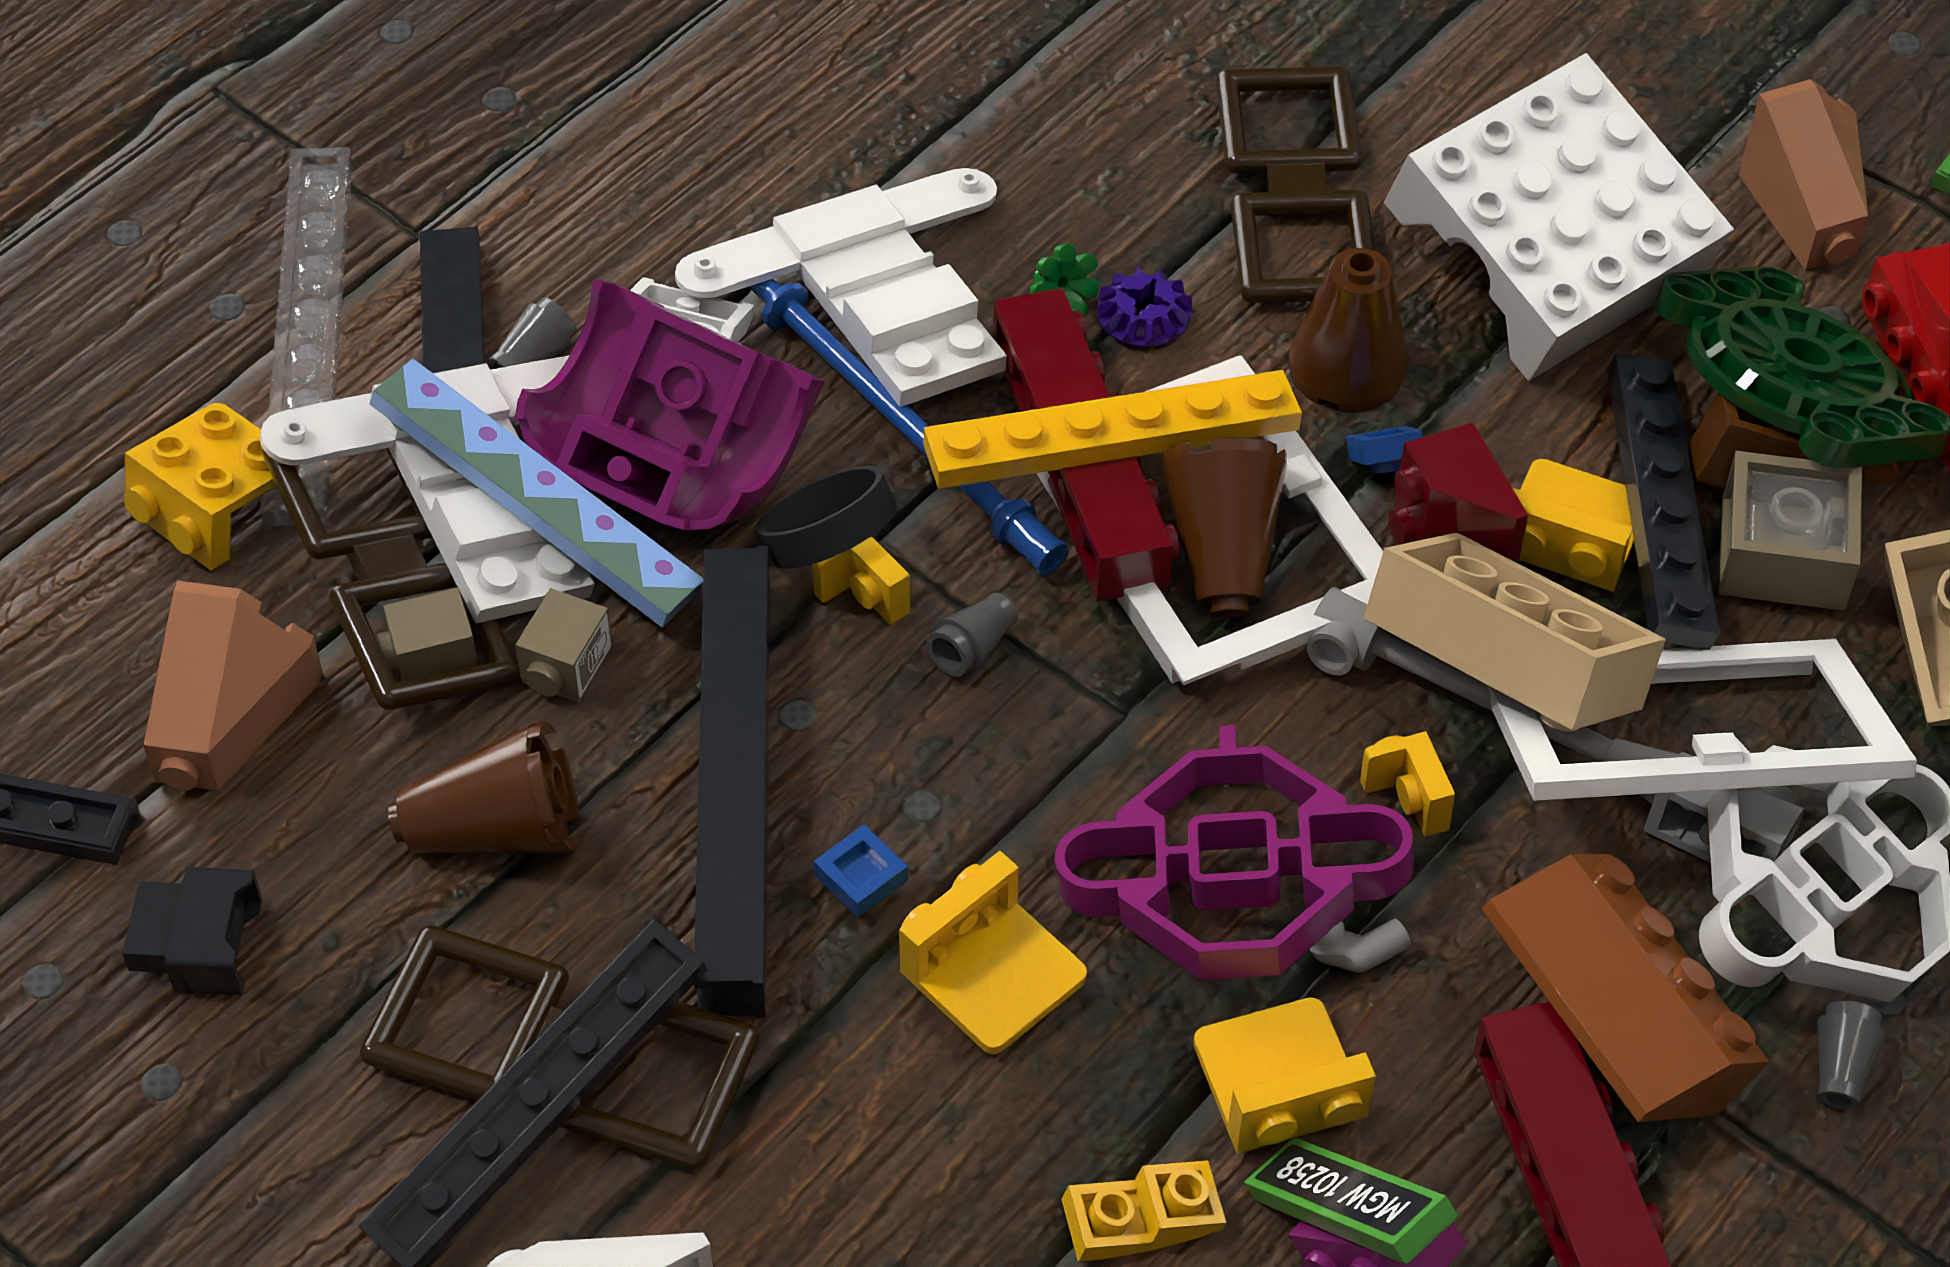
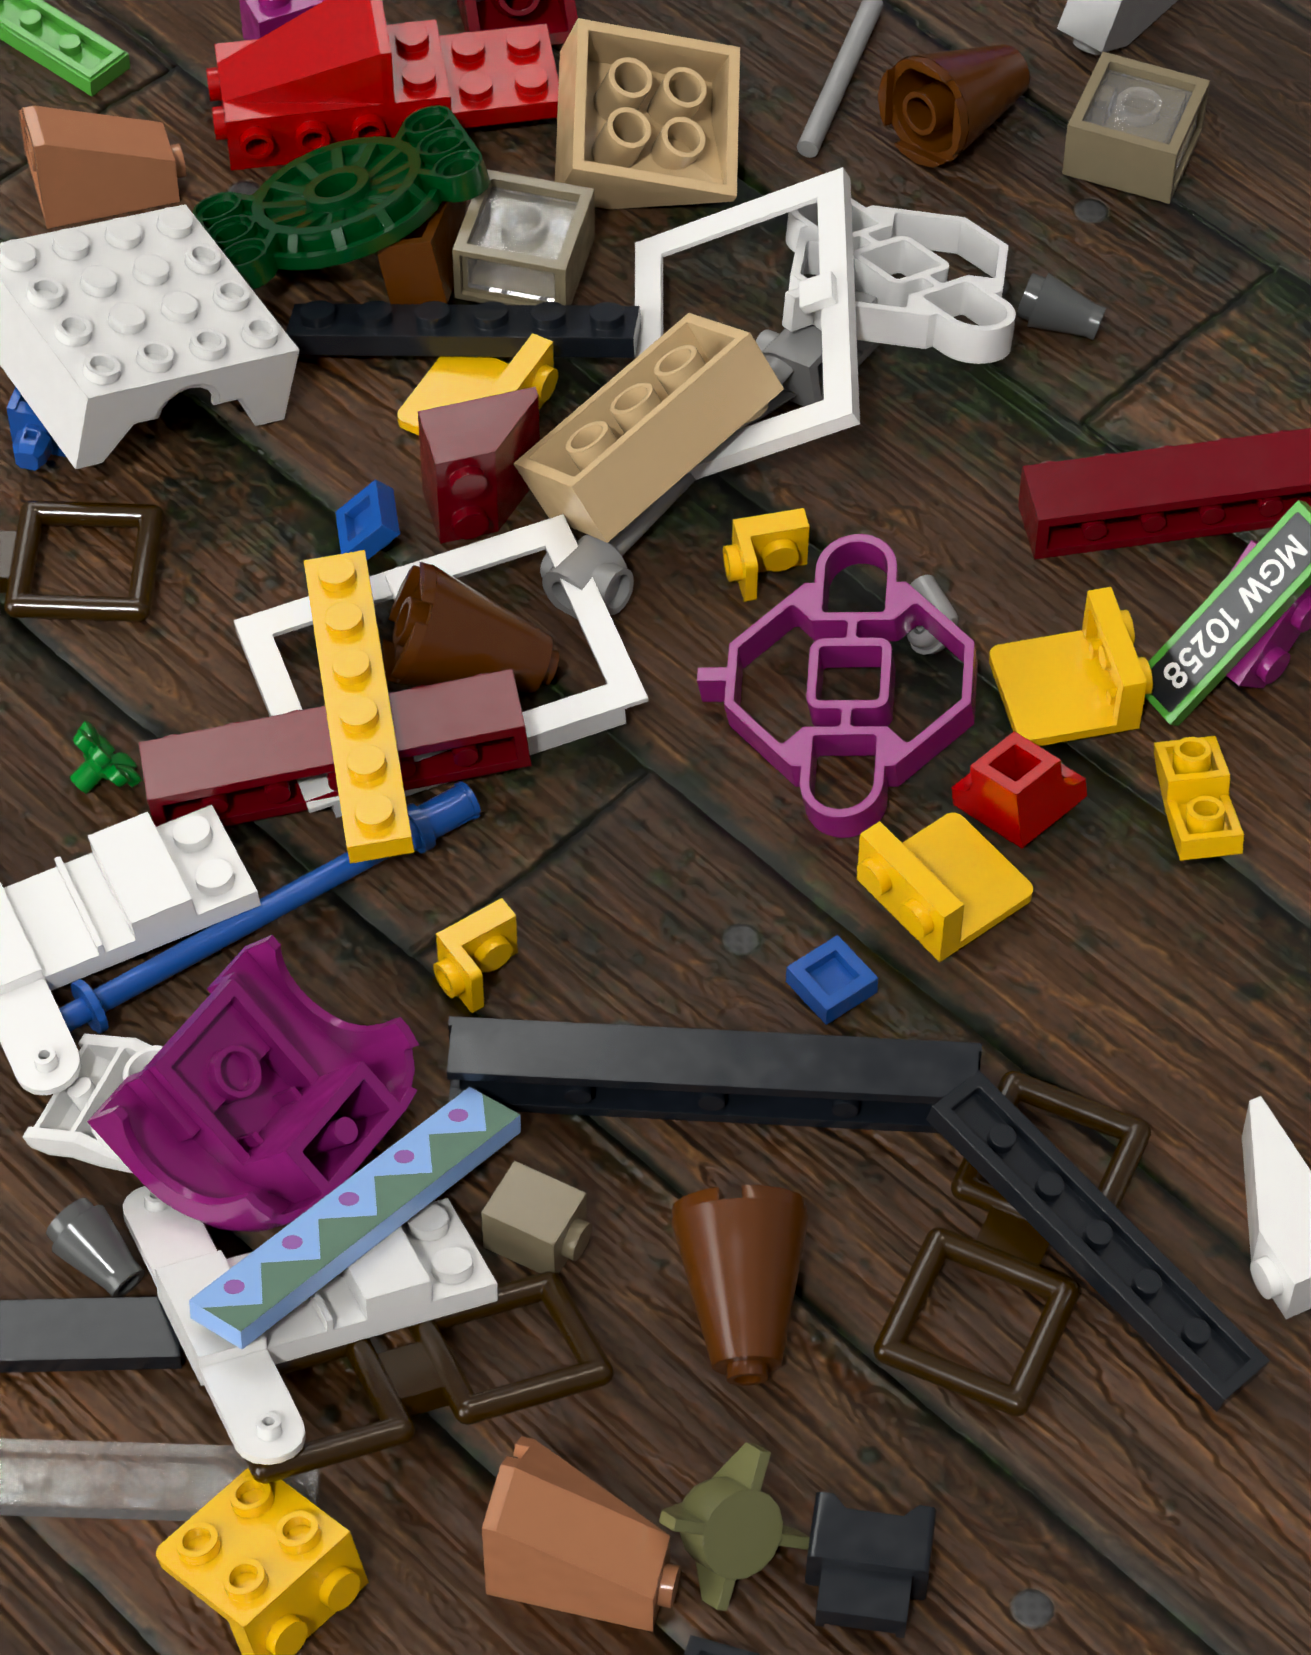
camera: 85 degrees left, 0 degrees up
(225, 804) = (731, 1525): none -> olive piece
(428, 635) = (511, 1336): dark tan brick -> none
(791, 525) = (362, 946): black tyre -> none
(967, 637) = (558, 873): dark grey cone -> none
(1115, 1025) = (1018, 789): none -> red brick
(1156, 323) = (146, 719): dark purple gear -> none
(1351, 336) = (236, 524): reddish brown cone -> none
(1627, 988) = (1008, 419): dark orange slope -> none

